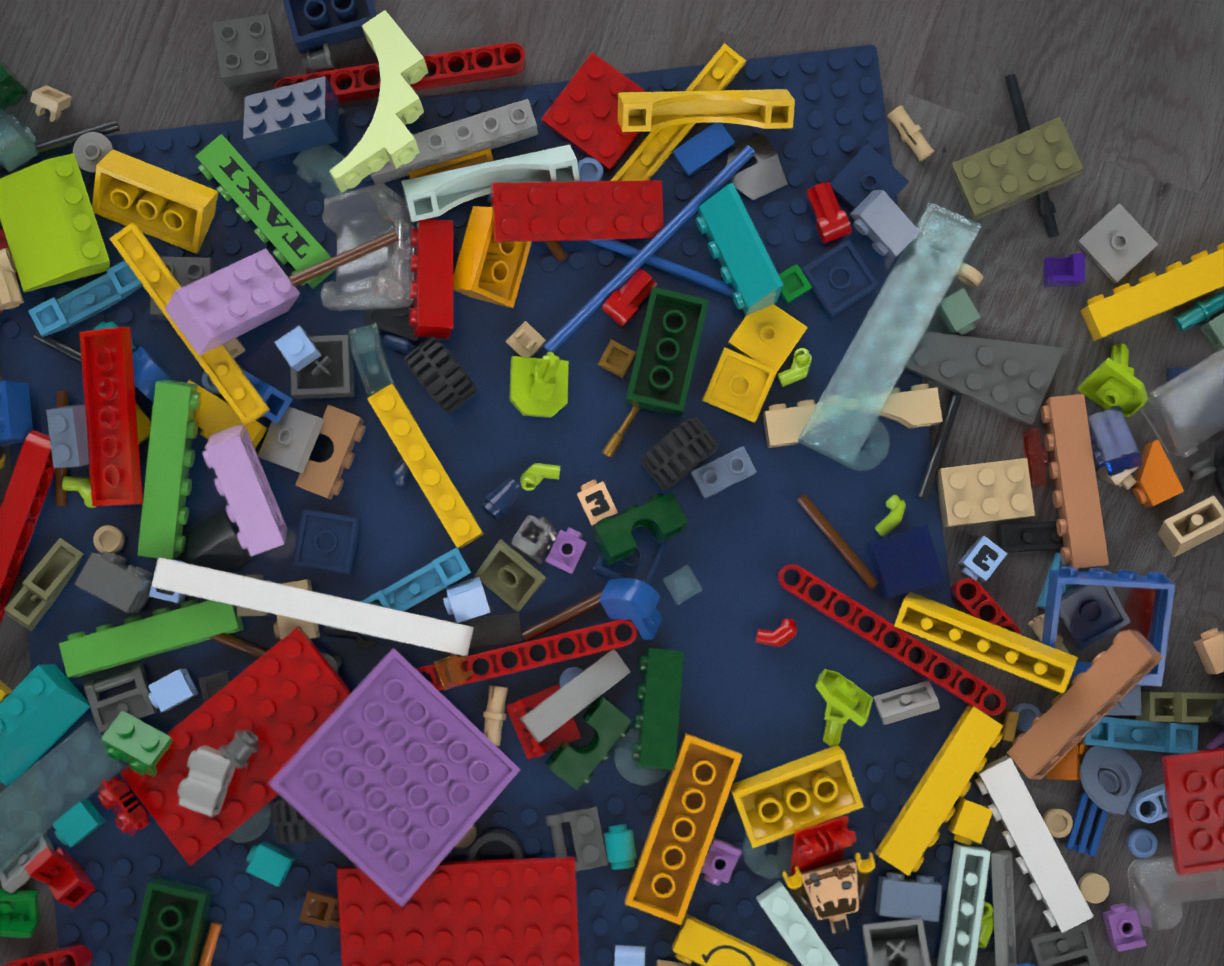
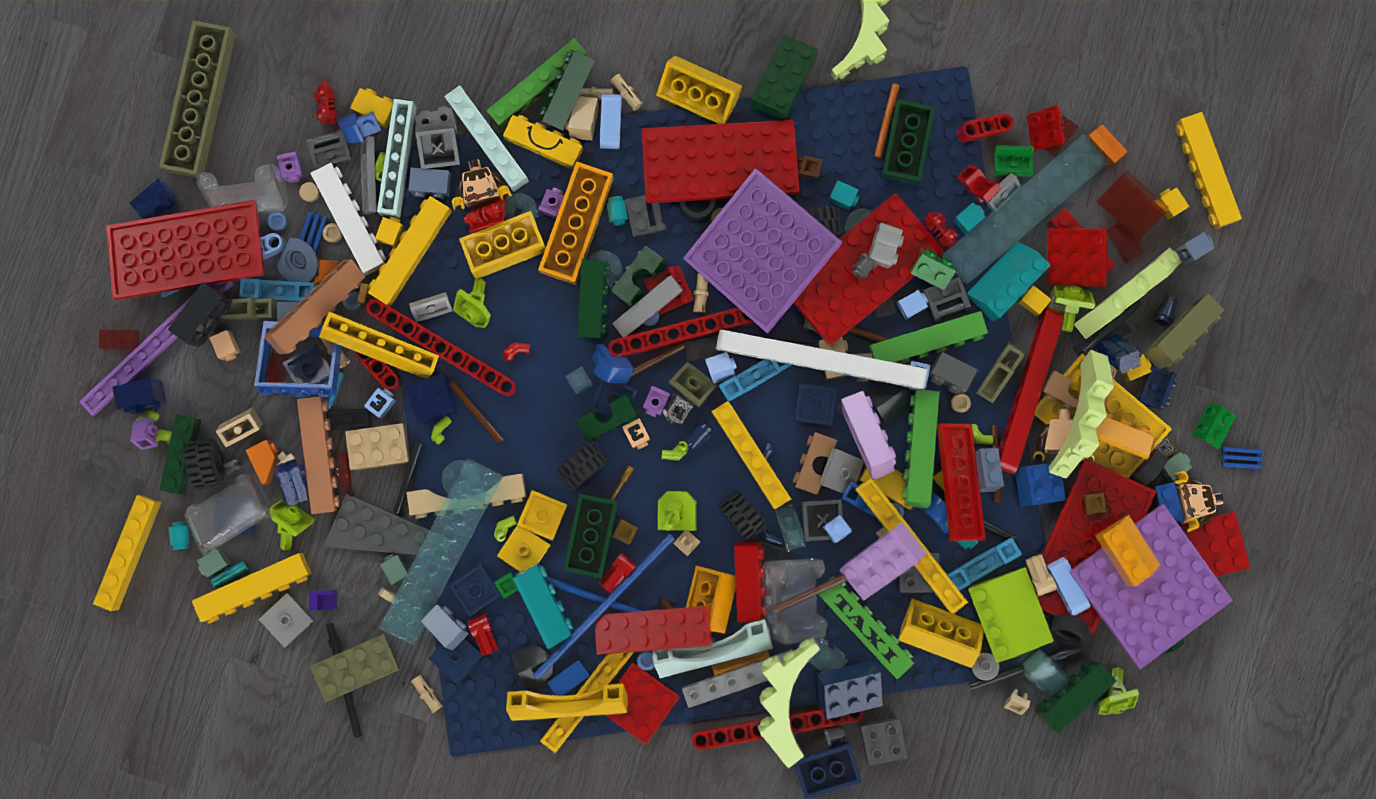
camera: 175 degrees left, 0 degrees up
(451, 672) = (728, 318): clear orange tile -> none
(723, 472) = (552, 455): sand blue brick -> none

